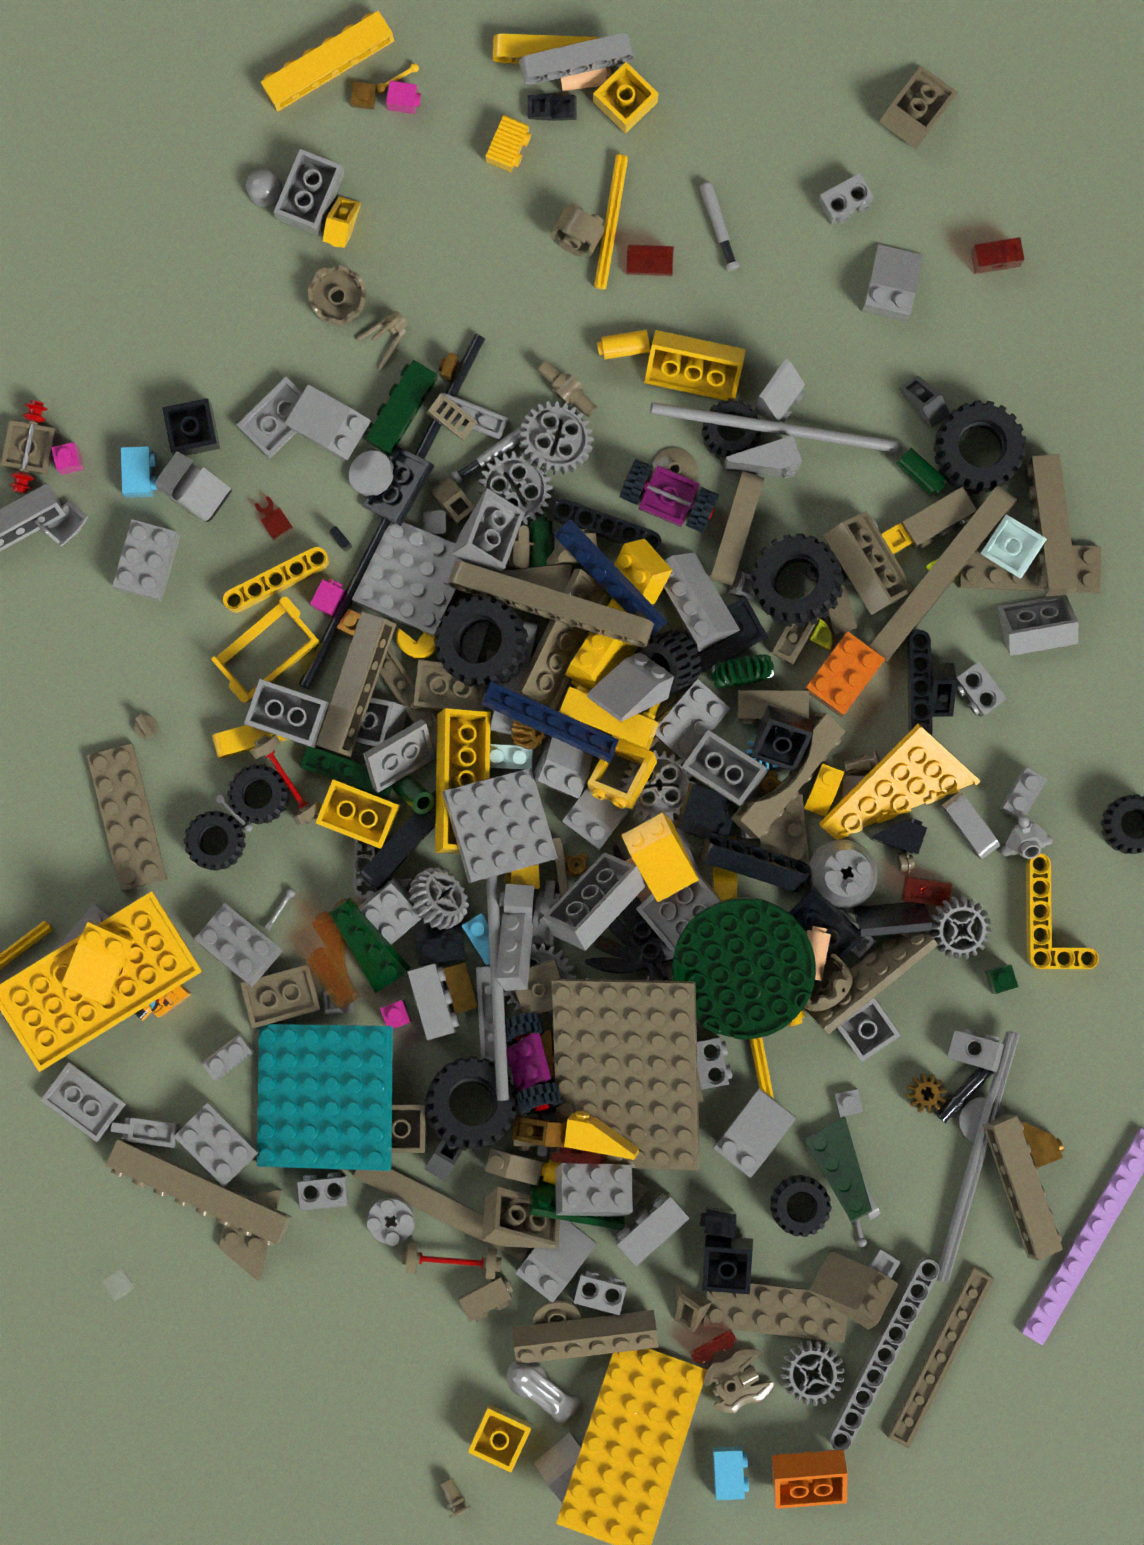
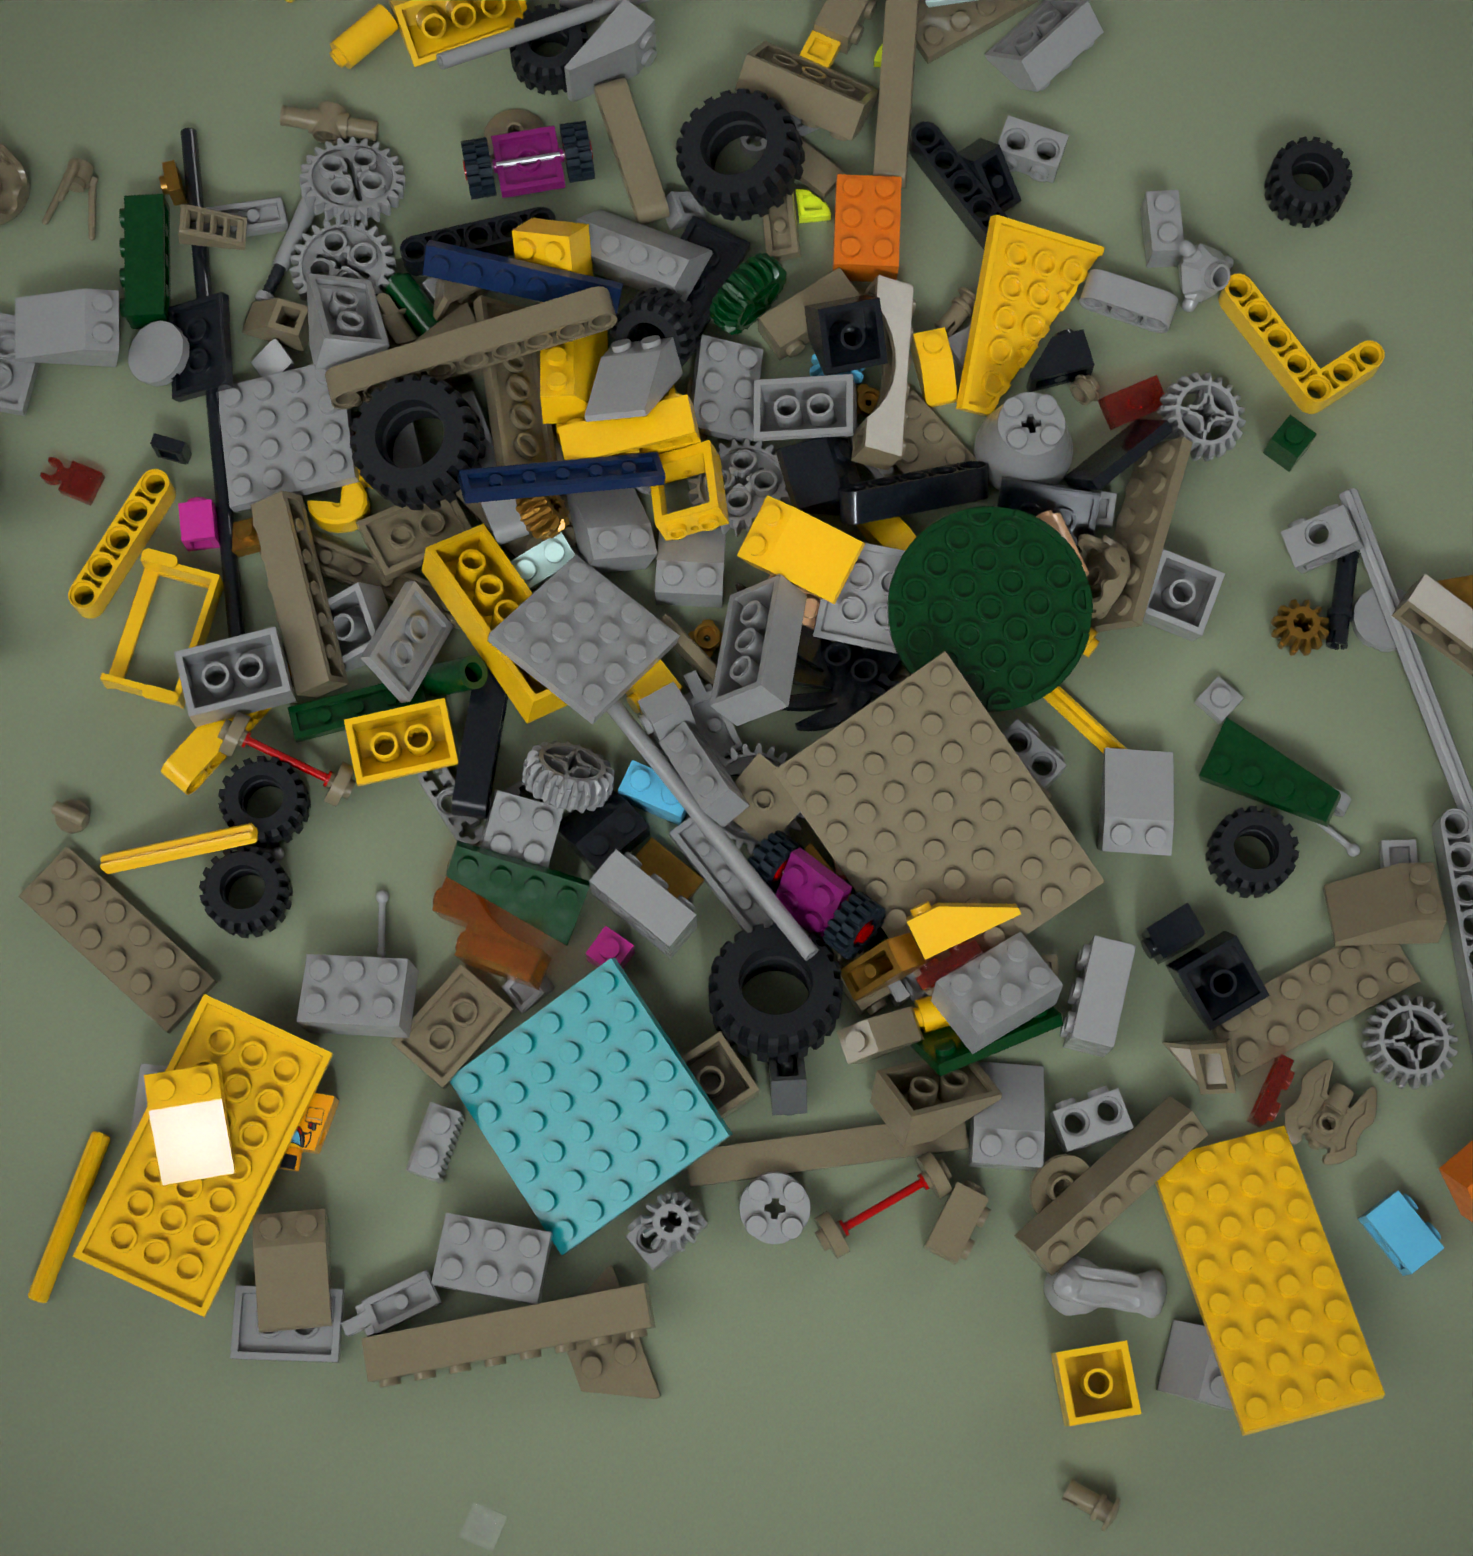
camera: 35 degrees left, 10 degrees down
(103, 1076) = (292, 1270): none -> dark tan slope
(193, 791) = (179, 848): none -> yellow axle
(323, 1203) = (663, 1214): none -> light grey gear

